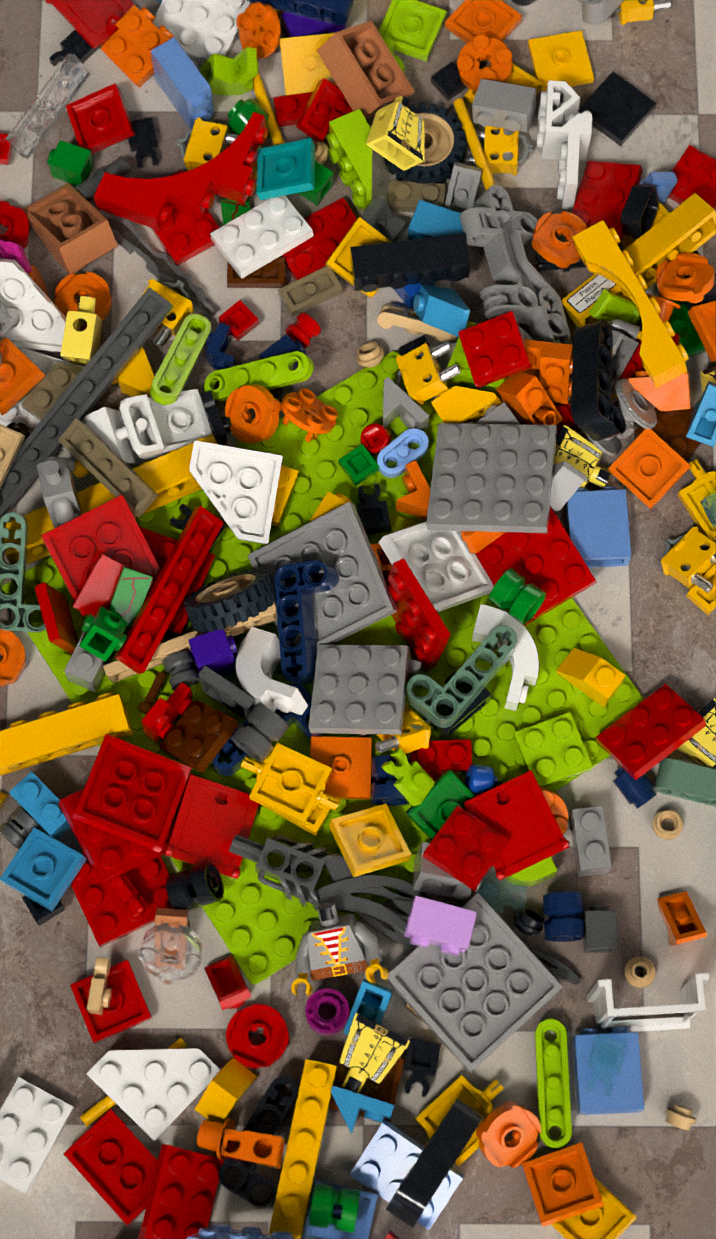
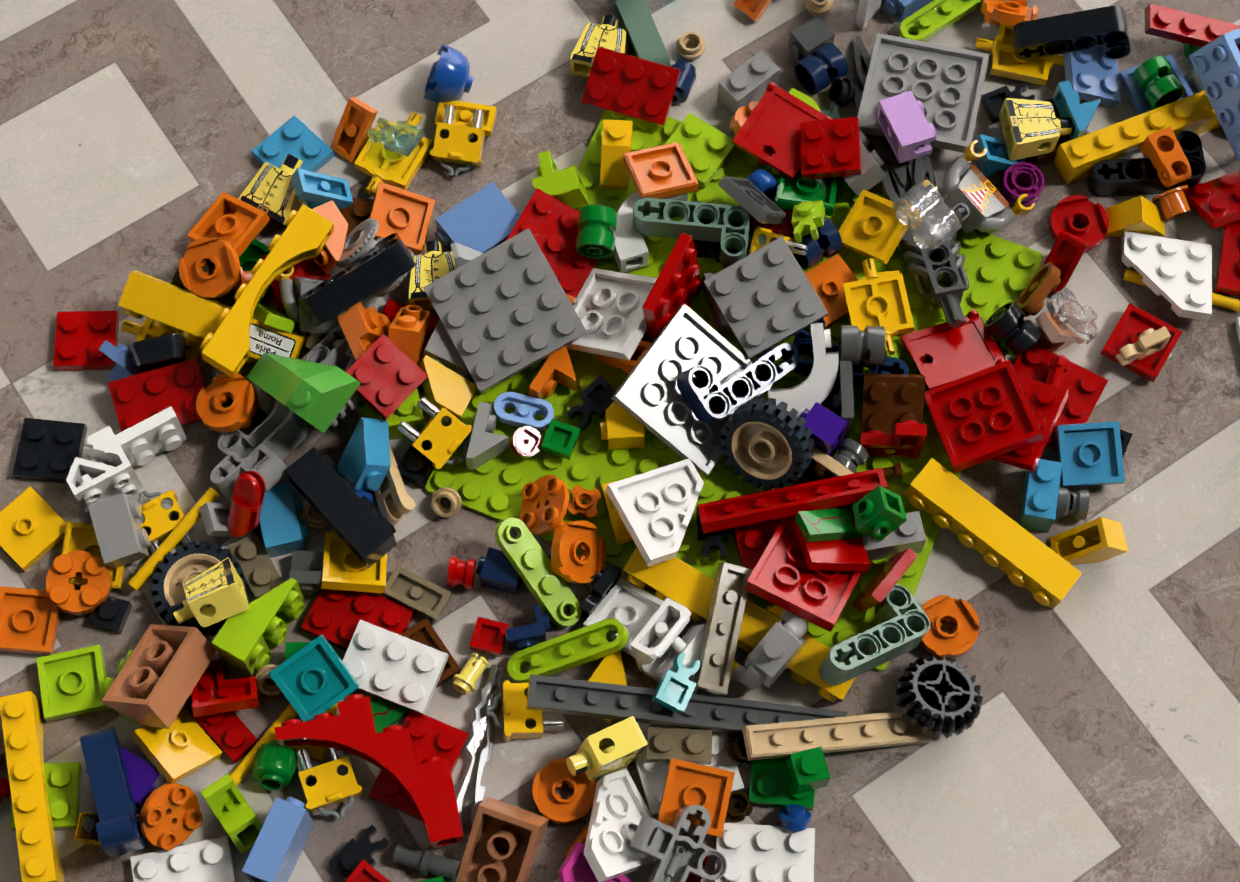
camera: 125 degrees left, 5 degrees down
(86, 401) = (675, 687): none -> plate
(216, 940) = (1041, 284): none -> dark orange plate
(219, 289) = (466, 679): none -> light yellow pin
(297, 457) = (584, 510): none -> orange plate
(338, 874) = (926, 215): none -> clear brick
(457, 740) = (753, 200): none -> dark grey plate
(458, 196) = (246, 503): none -> red arm
(519, 278) = (305, 387): none -> bright green wedge
(541, 689) = (661, 171): none -> orange plate
(596, 607) = (562, 184): none -> lime brick

